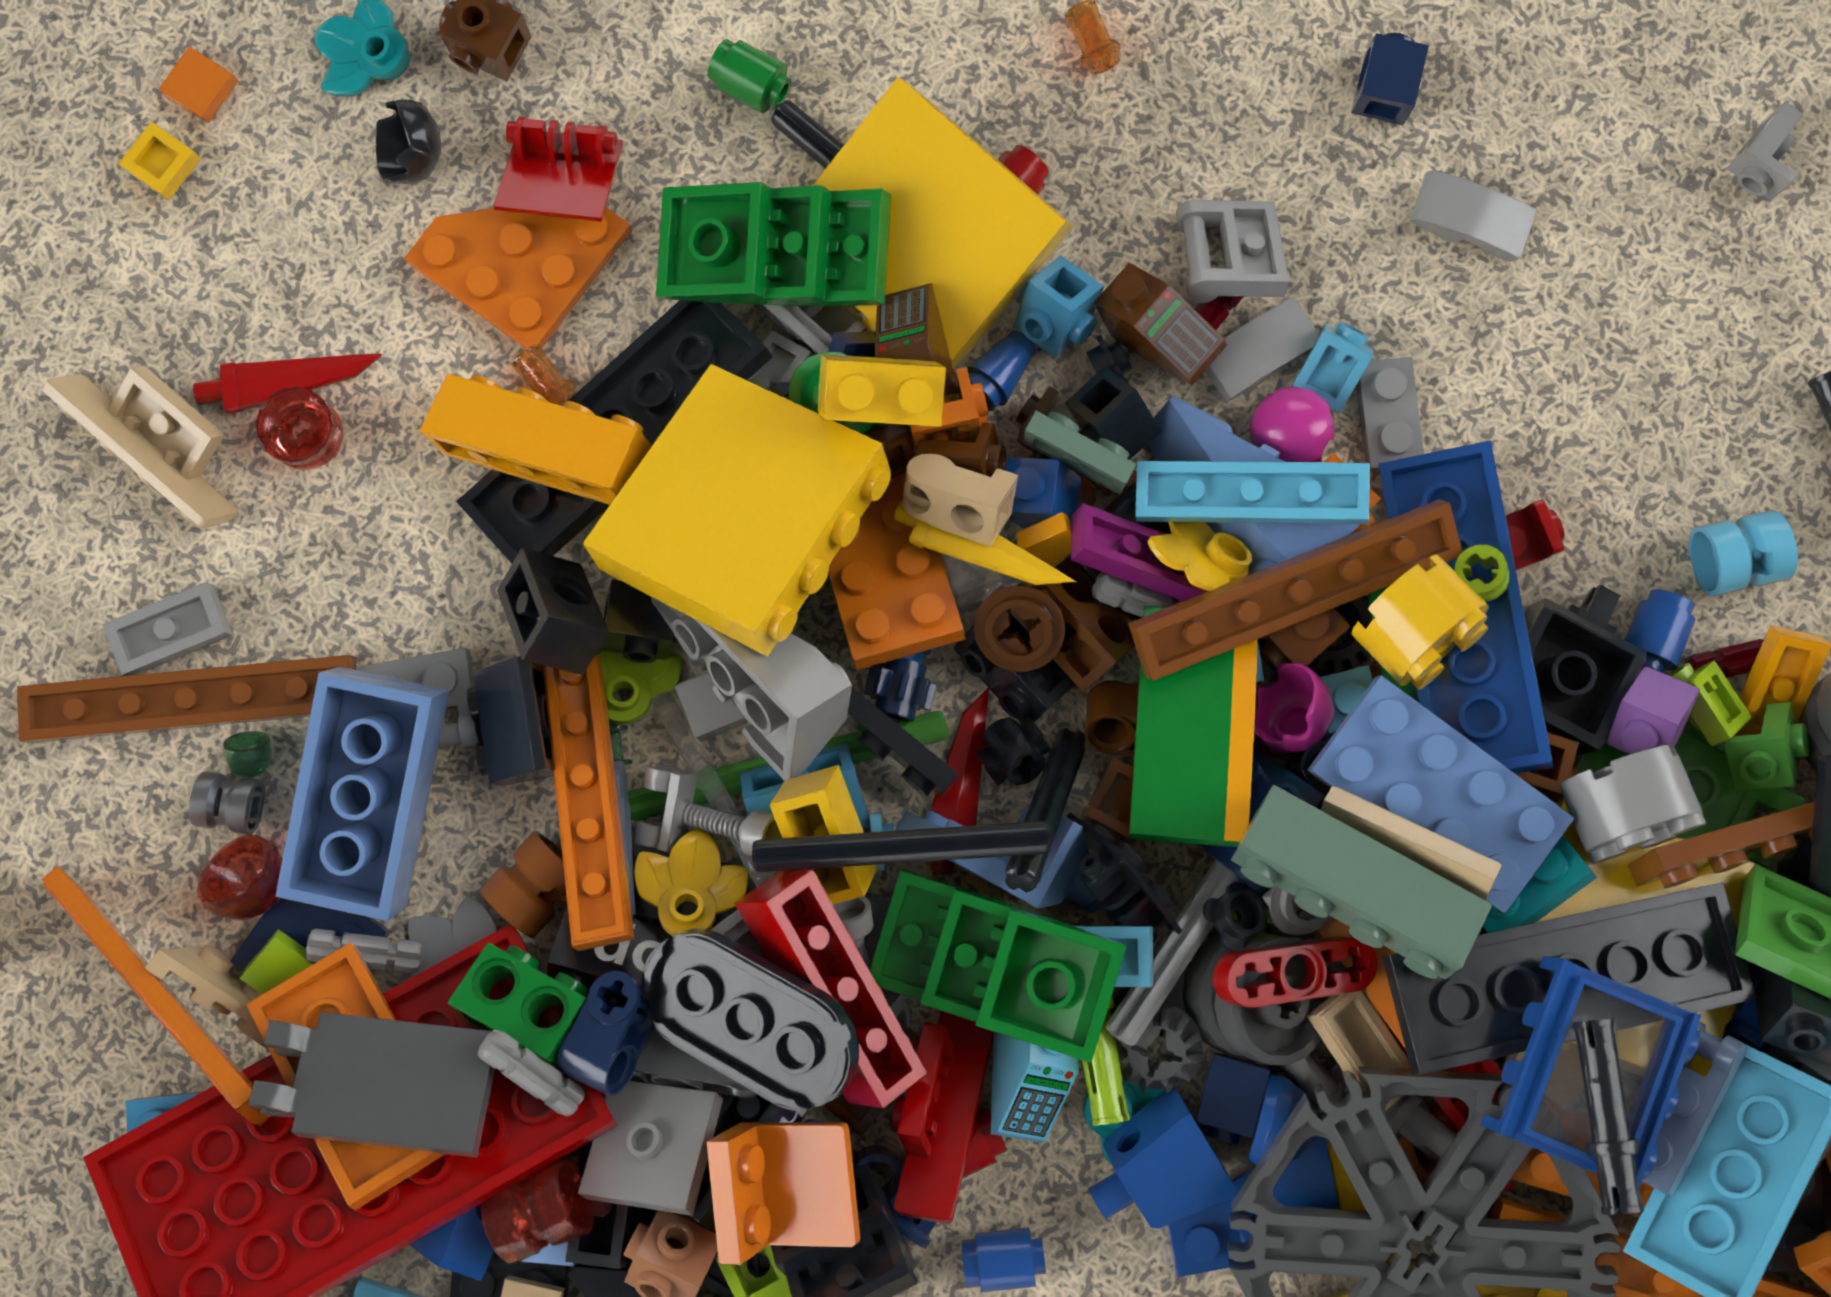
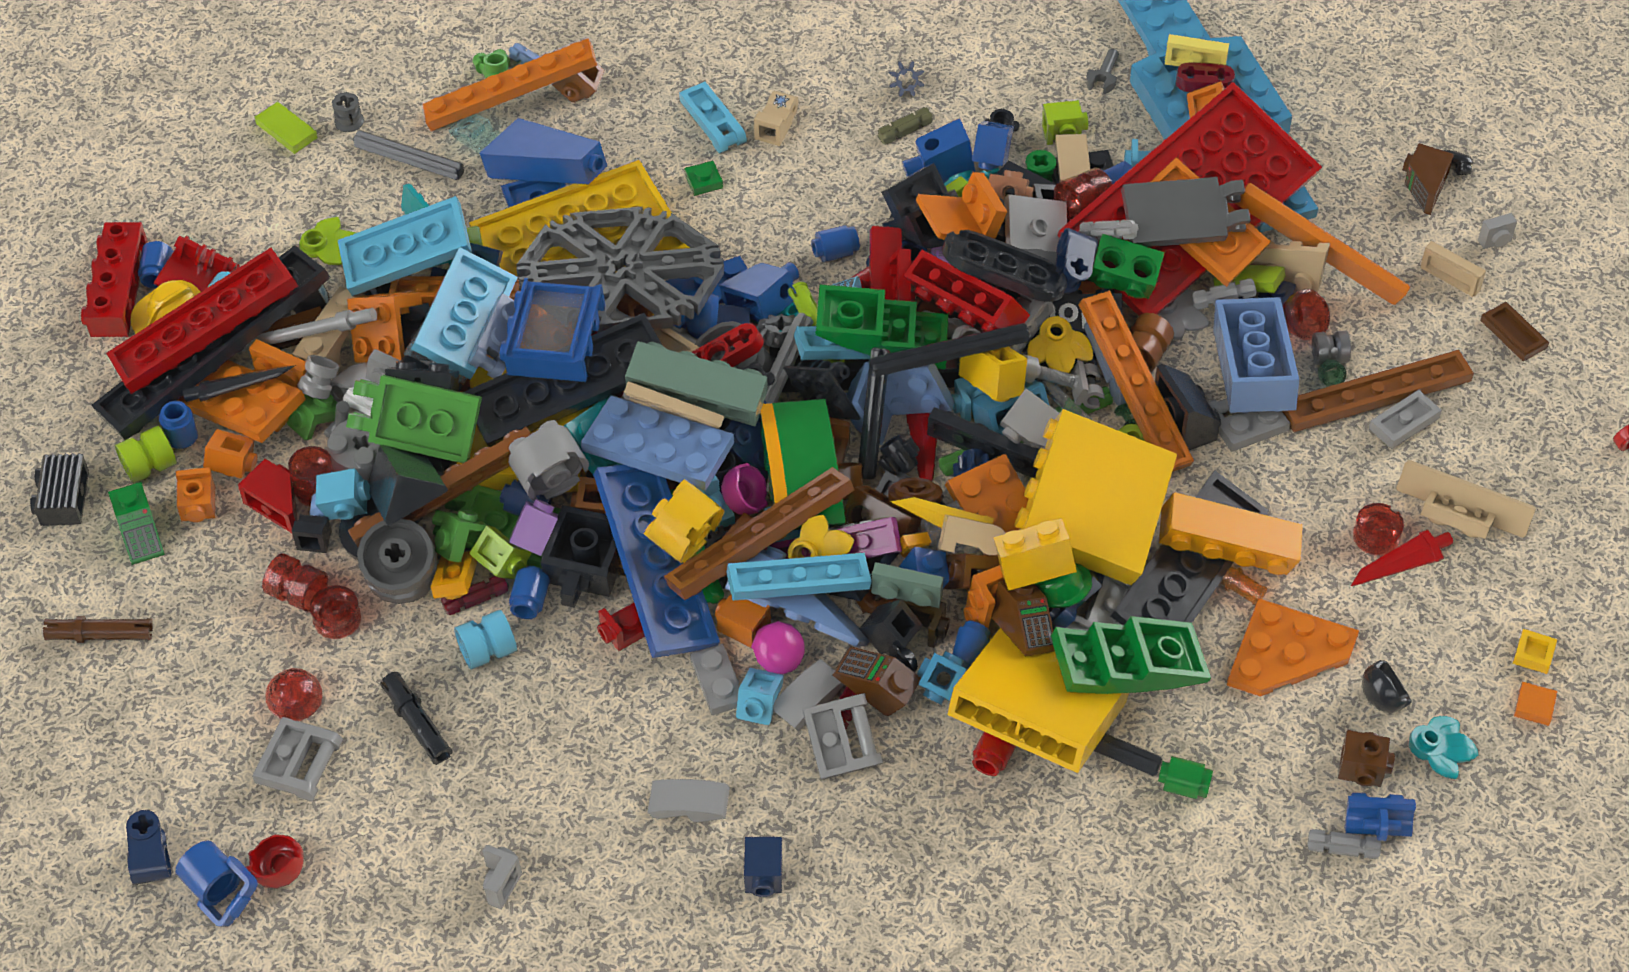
camera: 165 degrees right, 30 degrees down
(552, 611) = (1186, 429): black brick -> none
(558, 171) = (1283, 692): red hinge -> none
(1096, 45) = (968, 853): clear orange pin -> none
(1487, 557) = (651, 556): lime bush -> none
(1608, 1117) = (544, 288): black pin -> none

